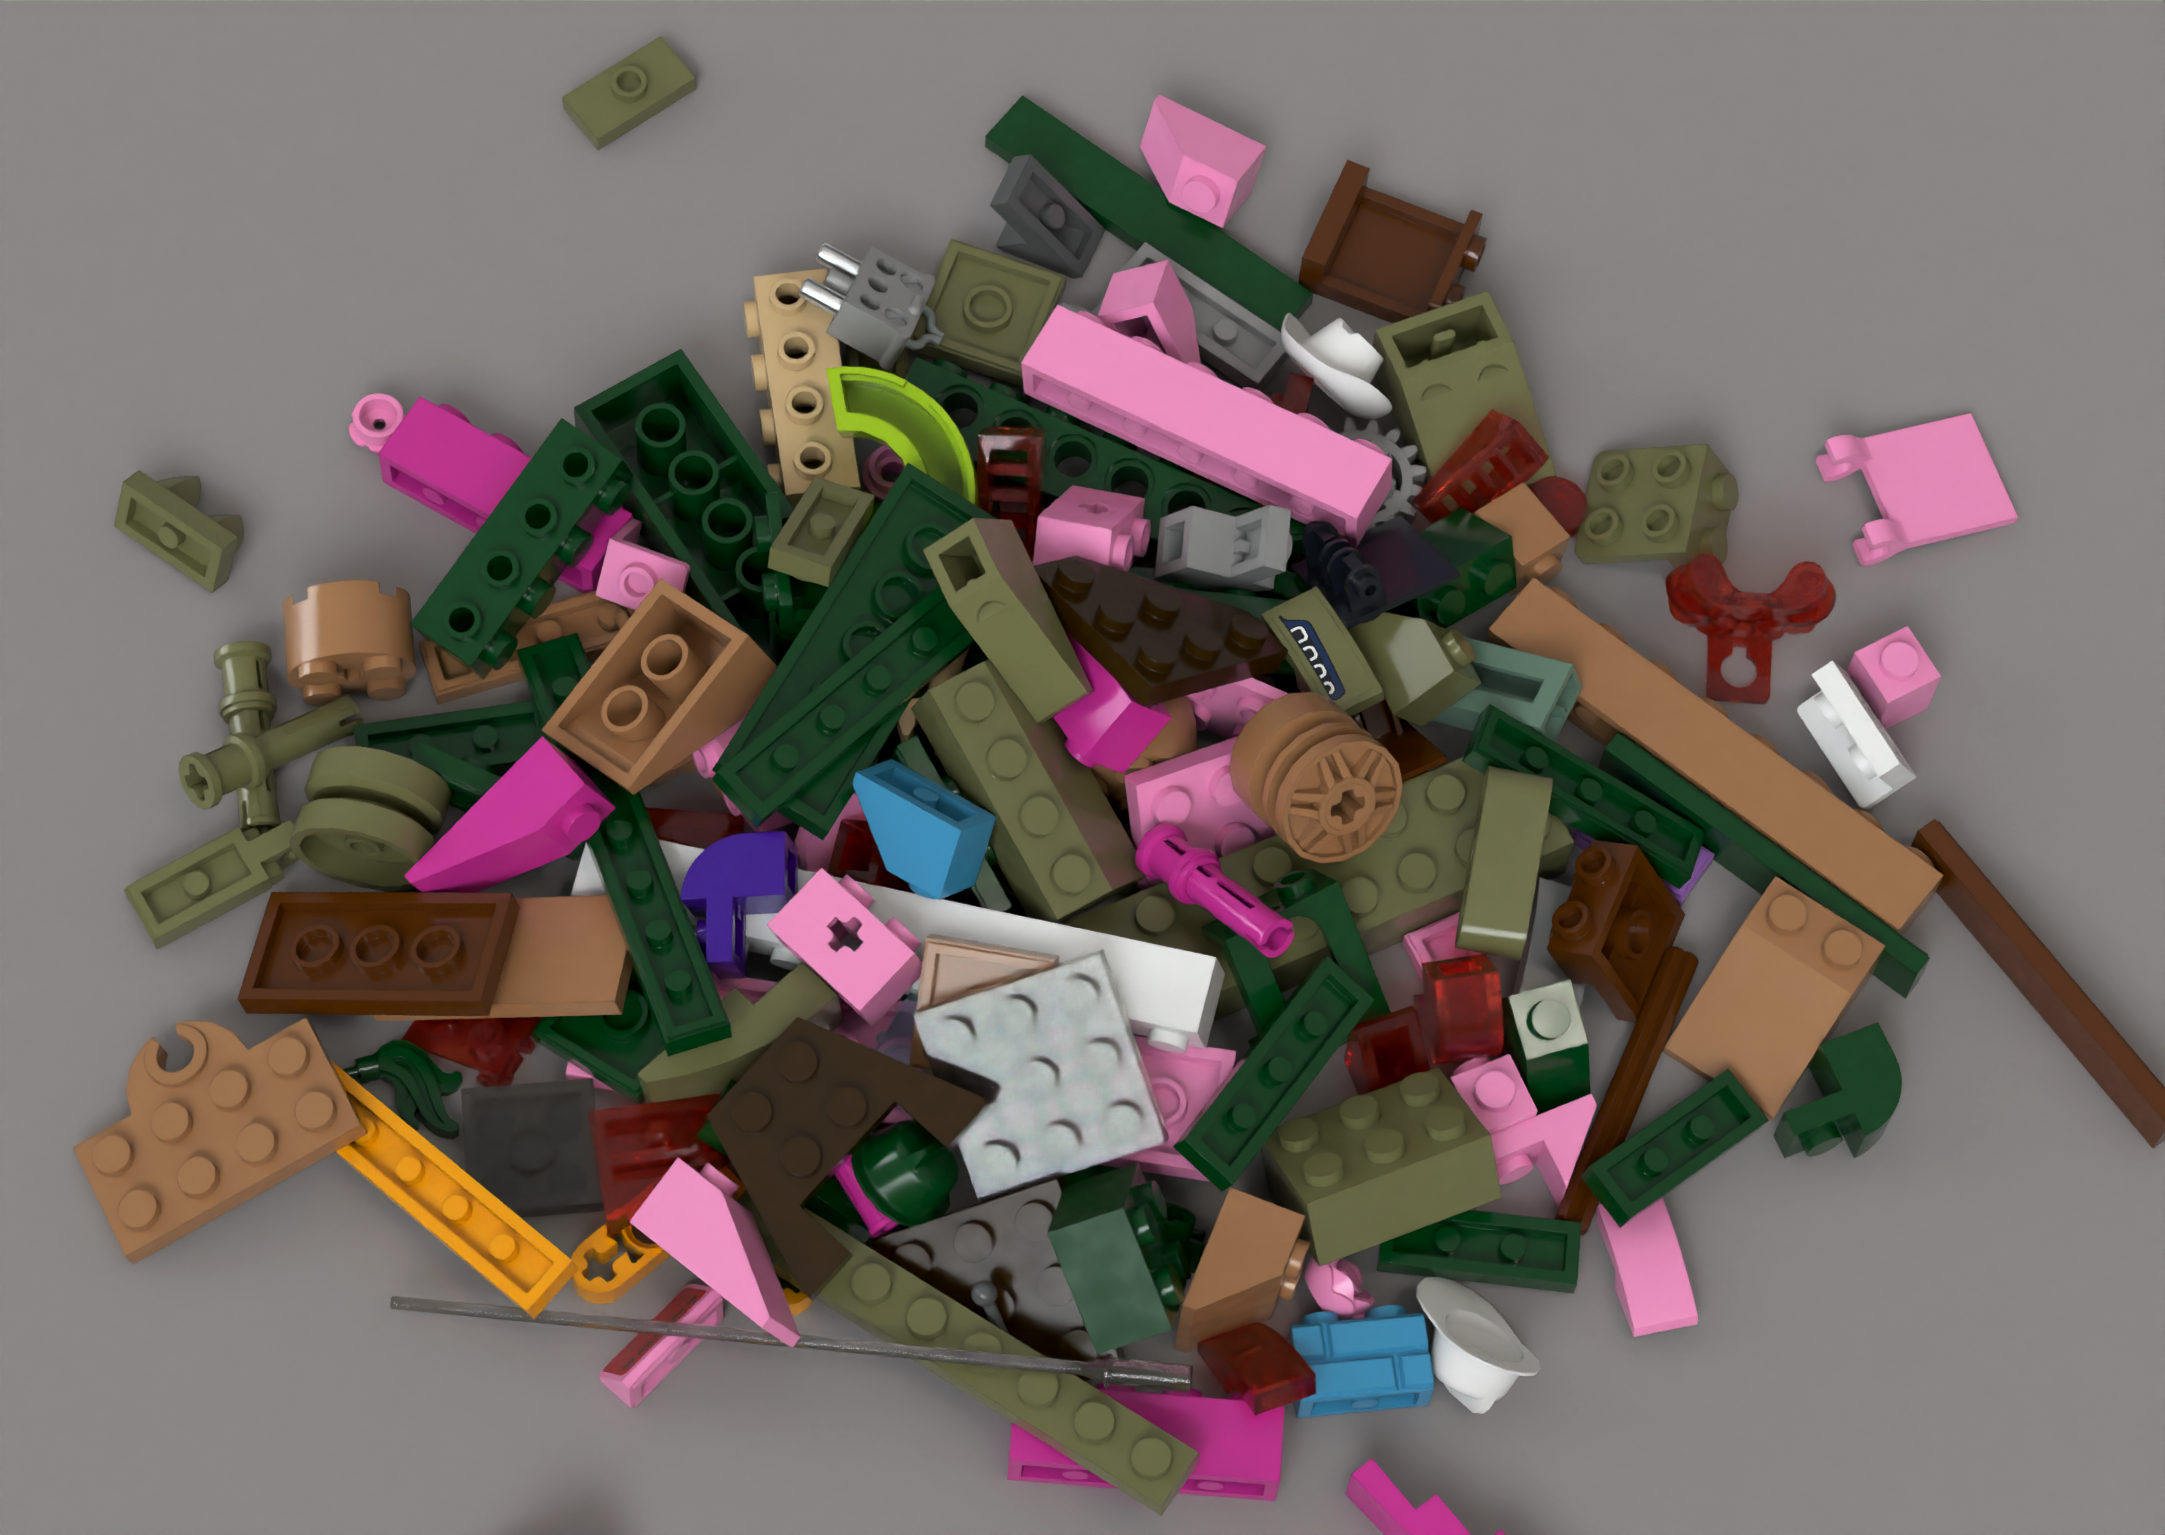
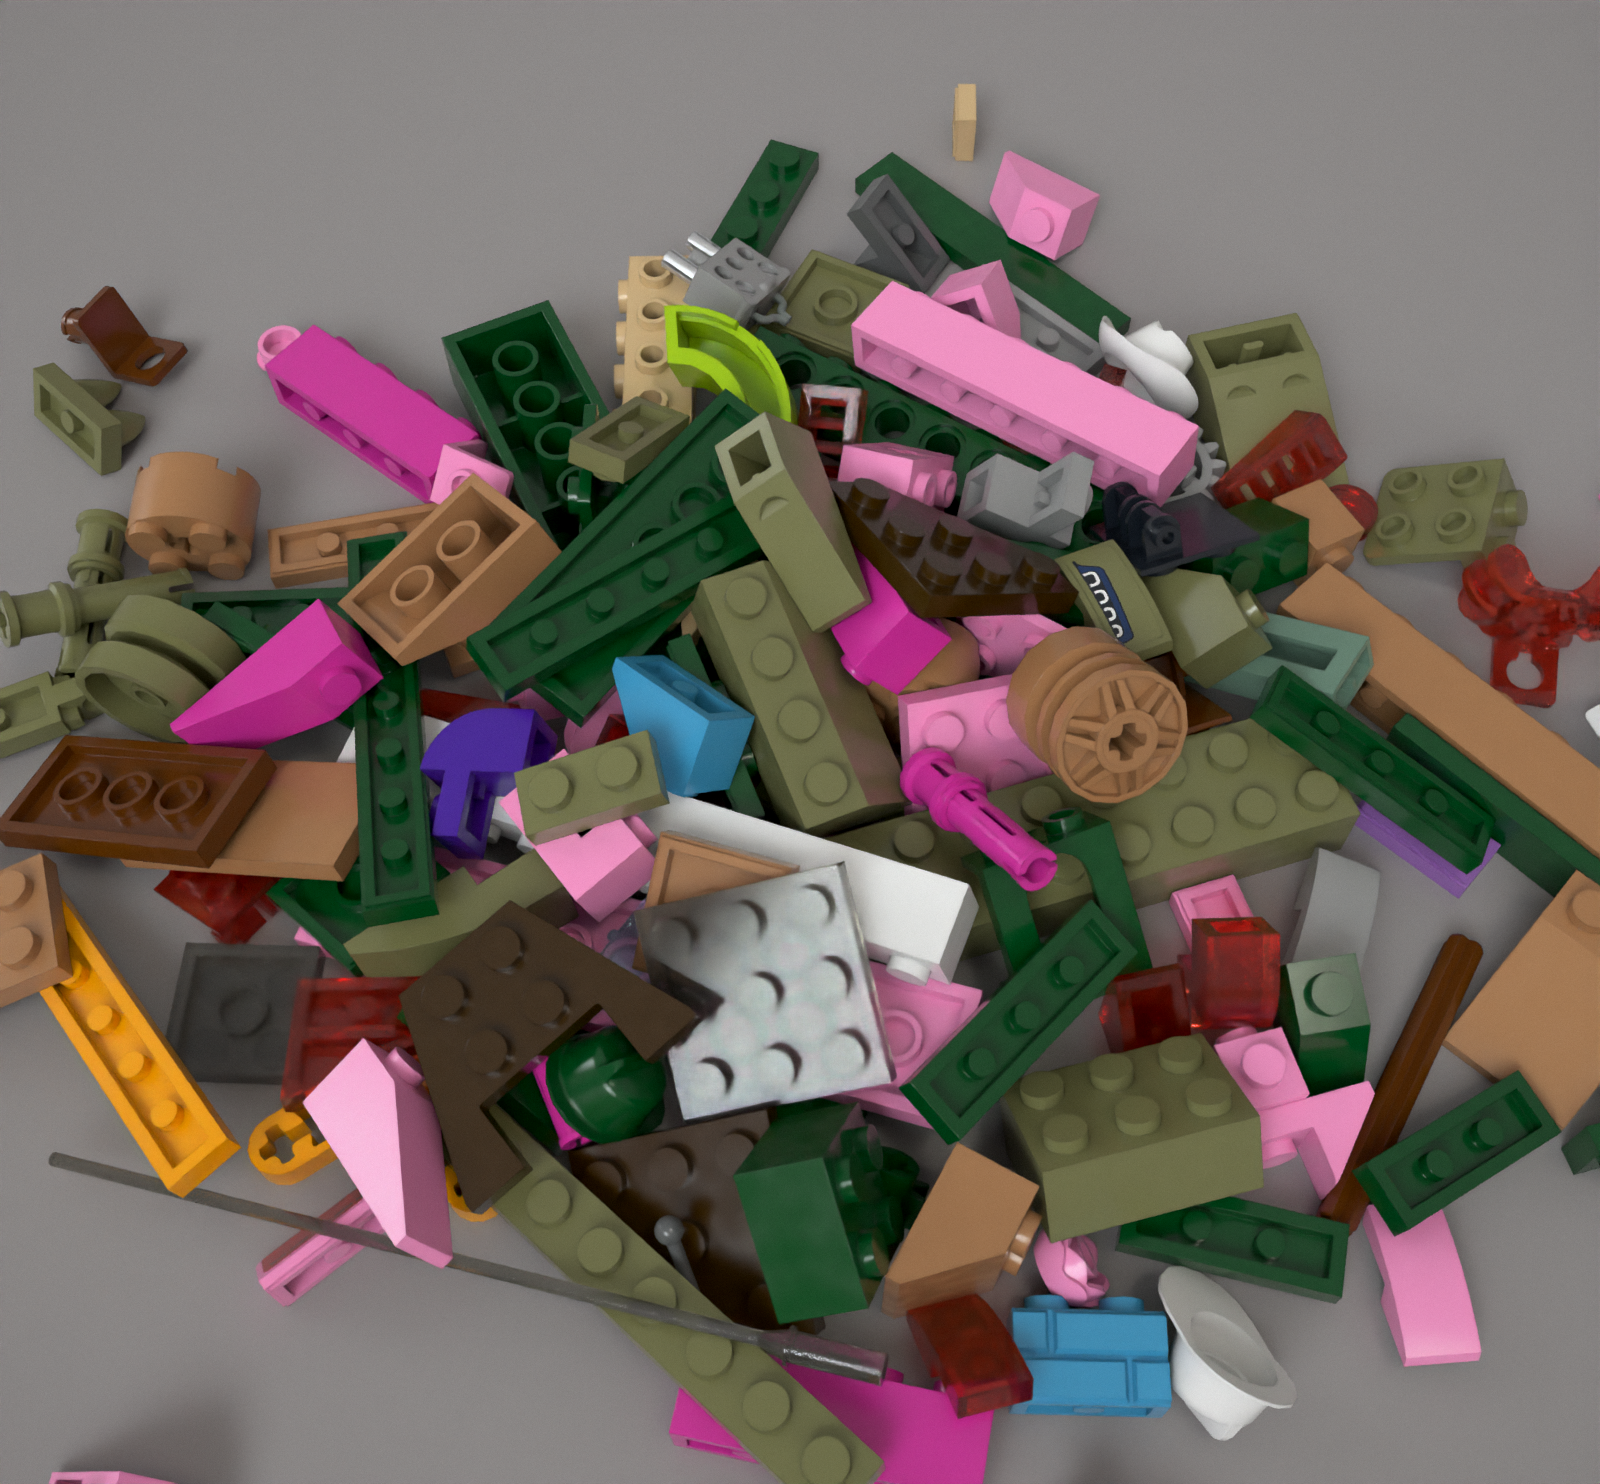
camera: 15 degrees right, 5 degrees down
(193, 428) = (120, 339): none -> reddish brown bracket
(416, 1084) = (153, 932): dark green piece -> none
(524, 550) = (364, 447): dark green brick -> none
(629, 93) = (561, 130): olive plate -> none
(858, 904) = (591, 788): none -> olive plate
(885, 175) = (768, 197): none -> dark green plate
(1101, 49) = (964, 122): none -> tan tile
(1387, 252) = (1198, 288): reddish brown panel -> none
(1503, 863) = (1288, 824): olive beam -> none
(1615, 926) = (1399, 903): reddish brown plate -> none

